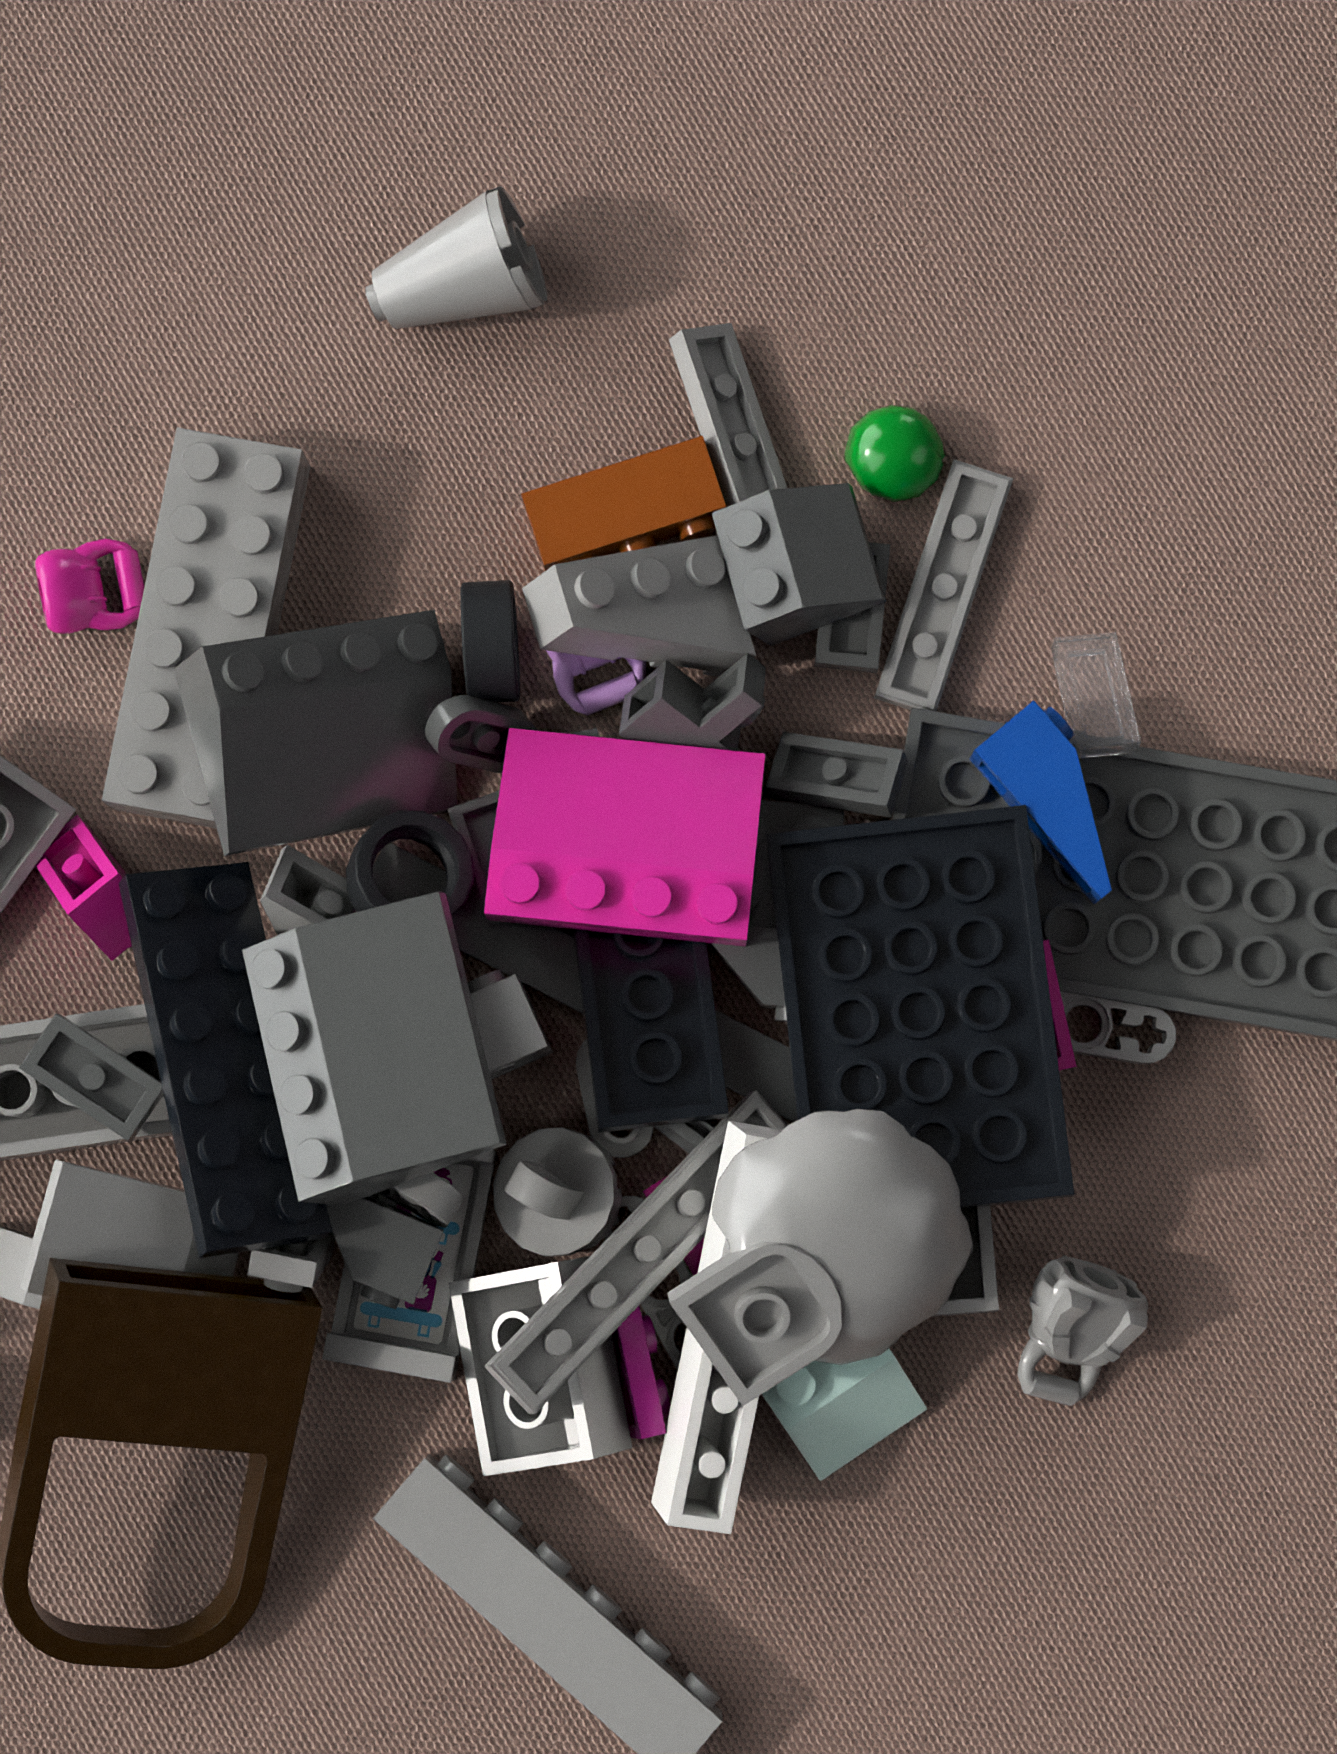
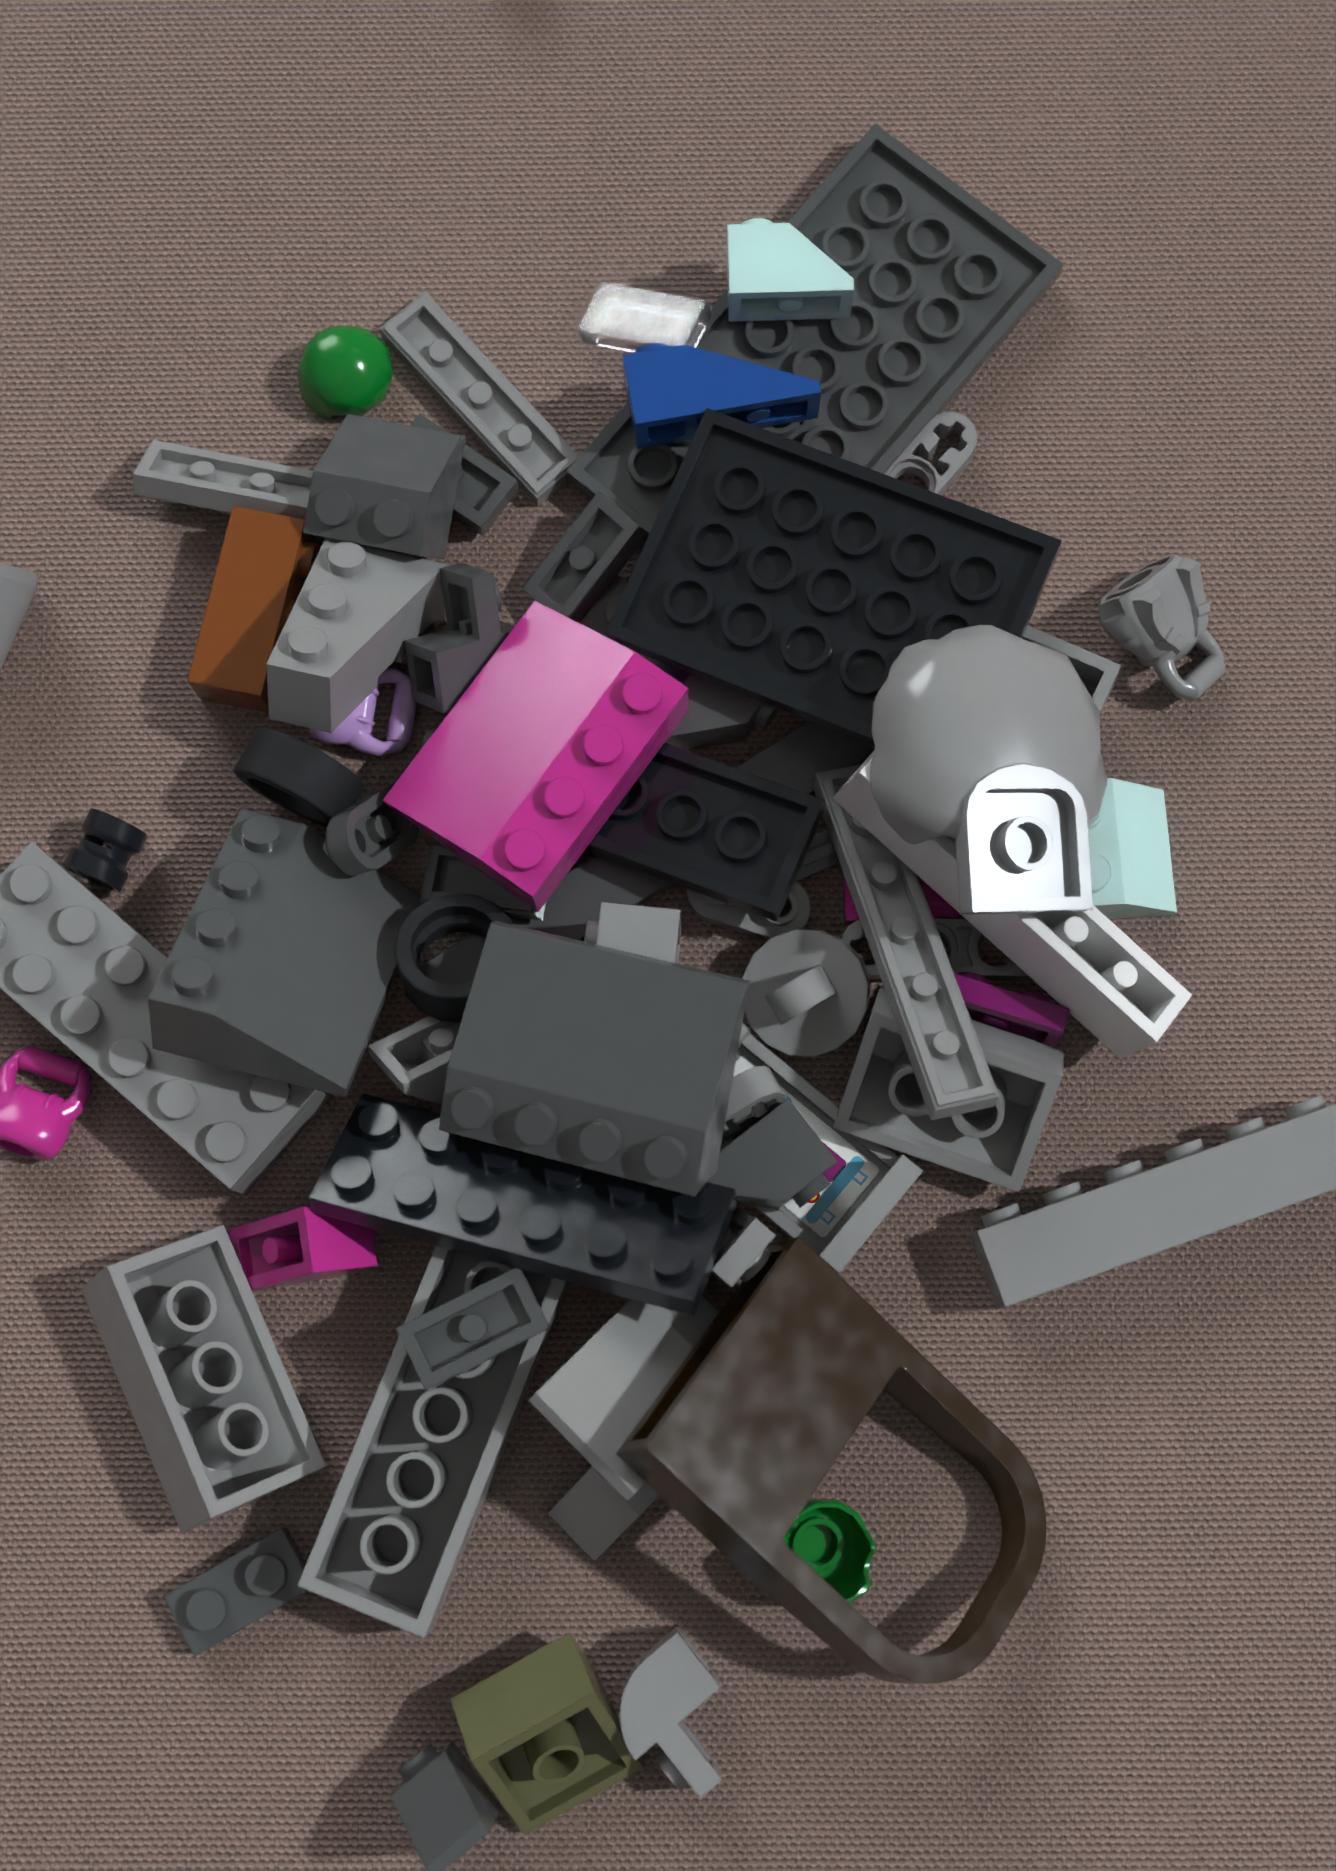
camera: 60 degrees left, 5 degrees down
(86, 1482) = (834, 1545): none -> green hair
(323, 515) = (100, 864): none -> black wheel
(1203, 793) = (782, 275): none -> light aqua slope

